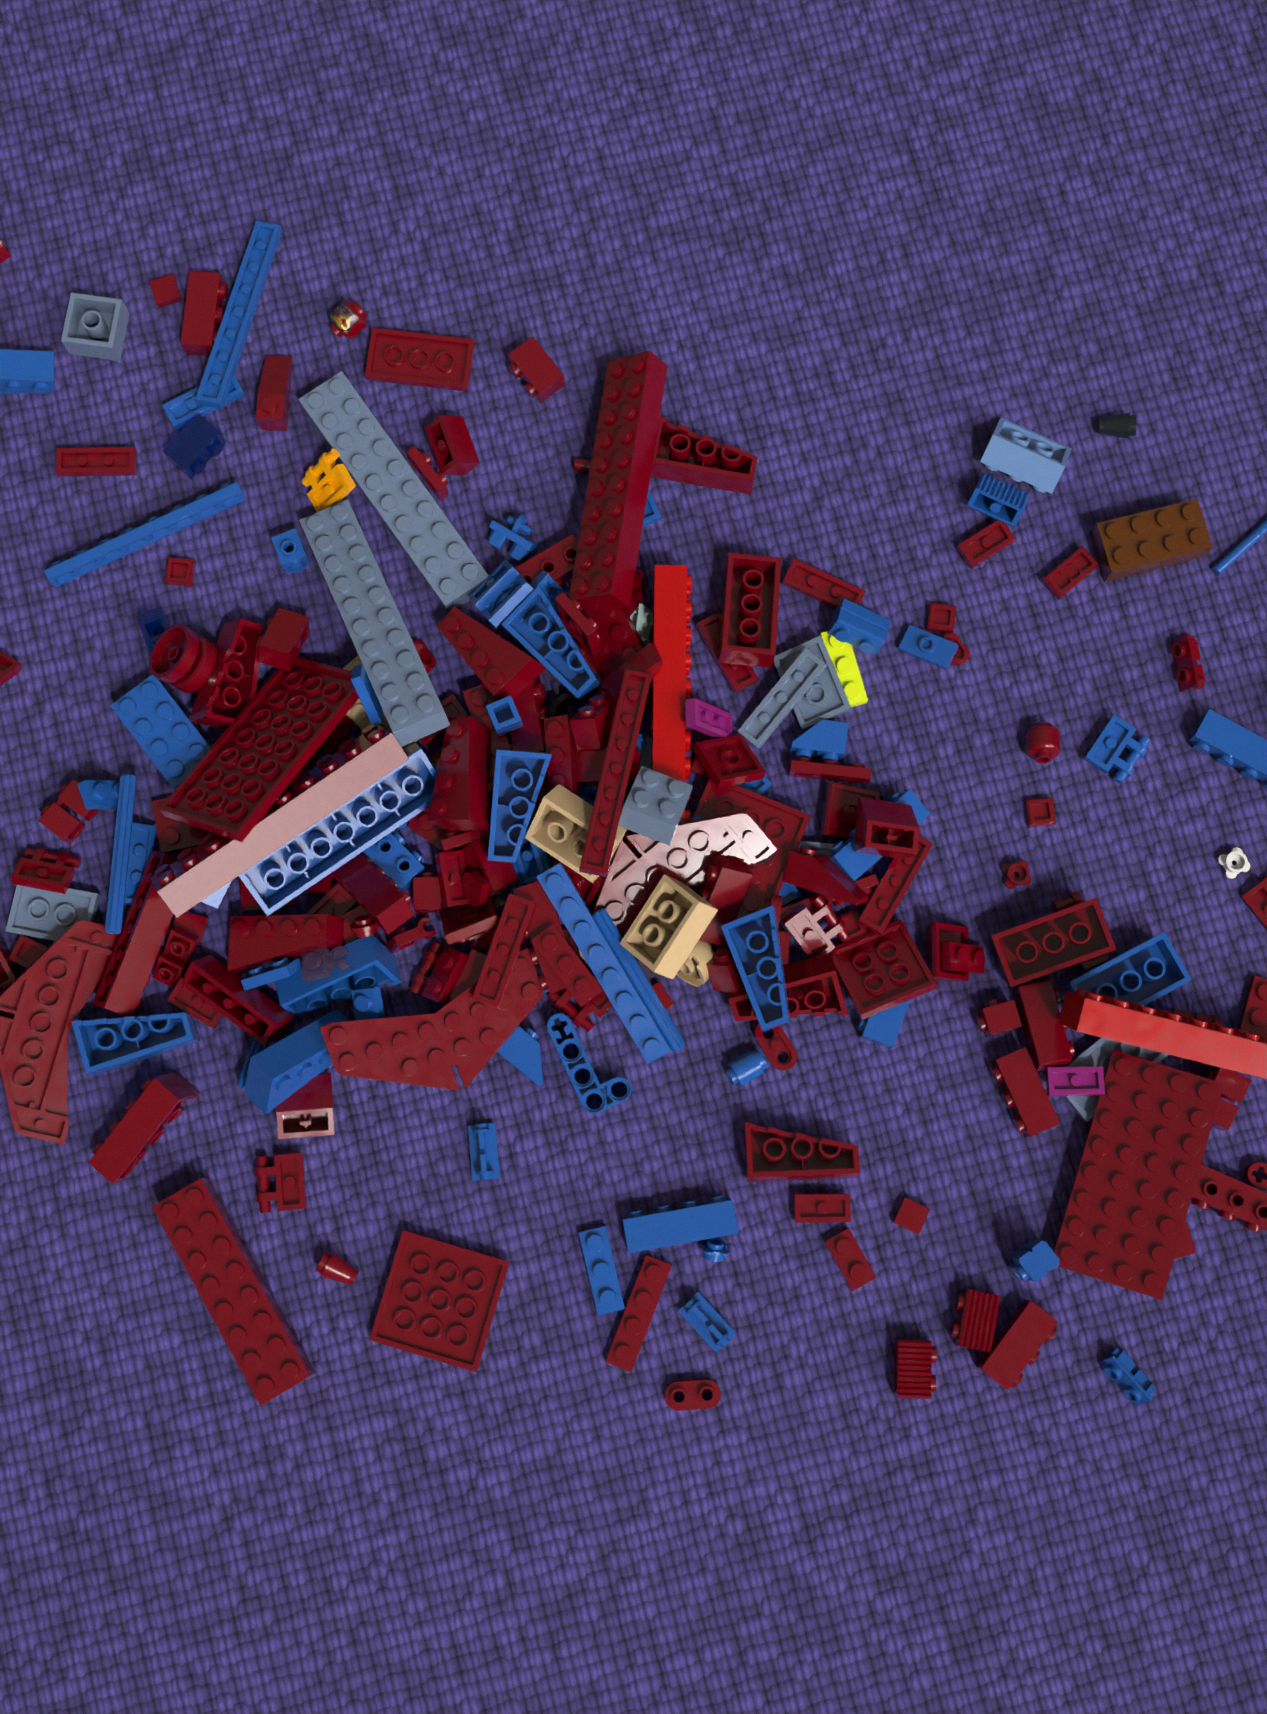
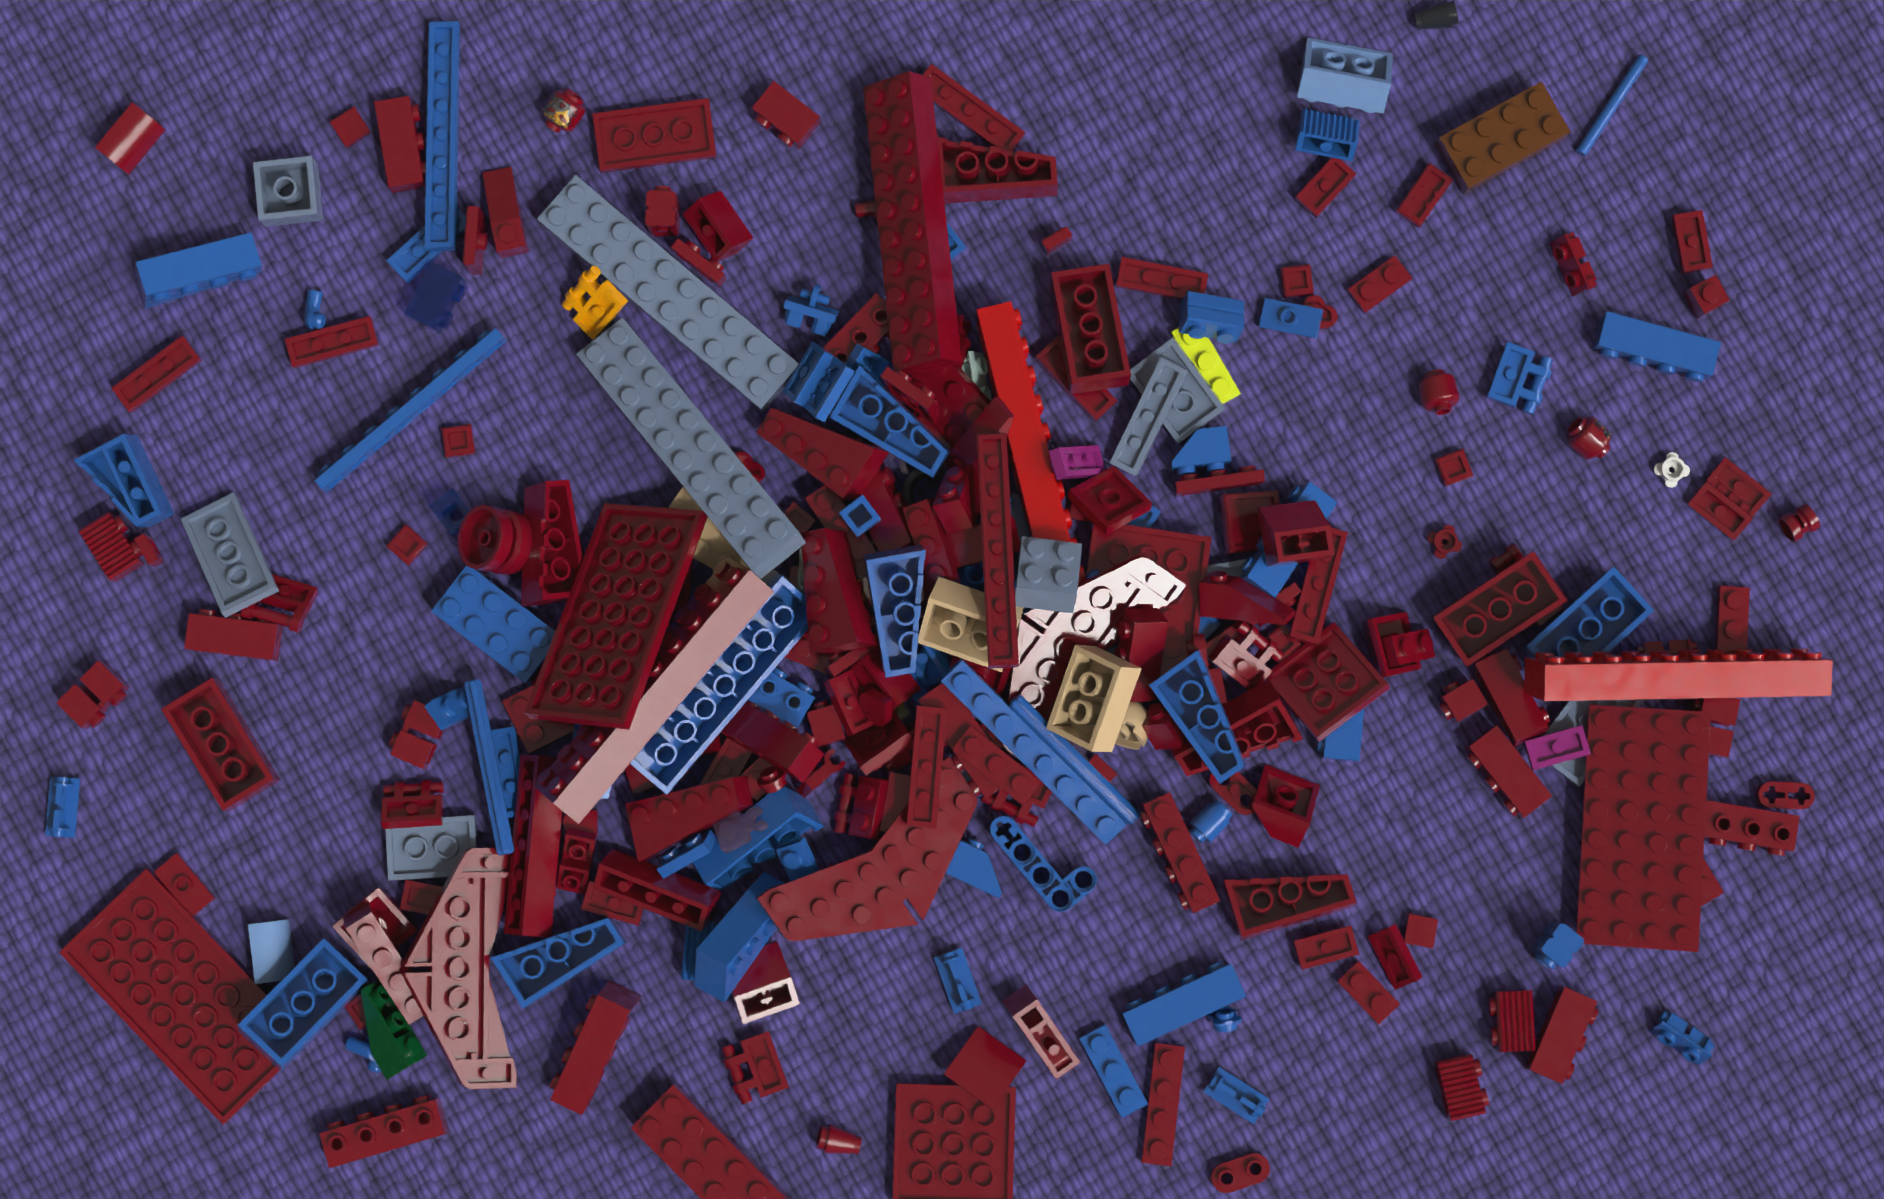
camera: 15 degrees left, 5 degrees up
(86, 434) = (312, 317): none -> blue arm
(110, 648) = (407, 545): none -> dark red tile
(240, 404) = (475, 240): none -> dark red plate
(283, 639) = (595, 489): dark red brick -> none
(291, 551) = (574, 389): blue brick -> none
(366, 694) = (709, 532): blue tile -> none
(407, 421) = (662, 212): none -> dark red brick
(486, 1236) = (985, 1067): none -> dark red slope
(545, 1217) = (1041, 1031): none -> dark red slope
(696, 405) = (972, 111): none -> dark red plate
(712, 1088) = (1180, 853): none -> dark red brick
(740, 530) = (1056, 240): none -> dark red tile
(817, 1069) = (1285, 804): none -> dark red slope
(882, 1233) = (1395, 956): none -> dark red plate
(1012, 639) = (1379, 284): none -> dark red plate
(1167, 815) = (1589, 437): none -> dark red head

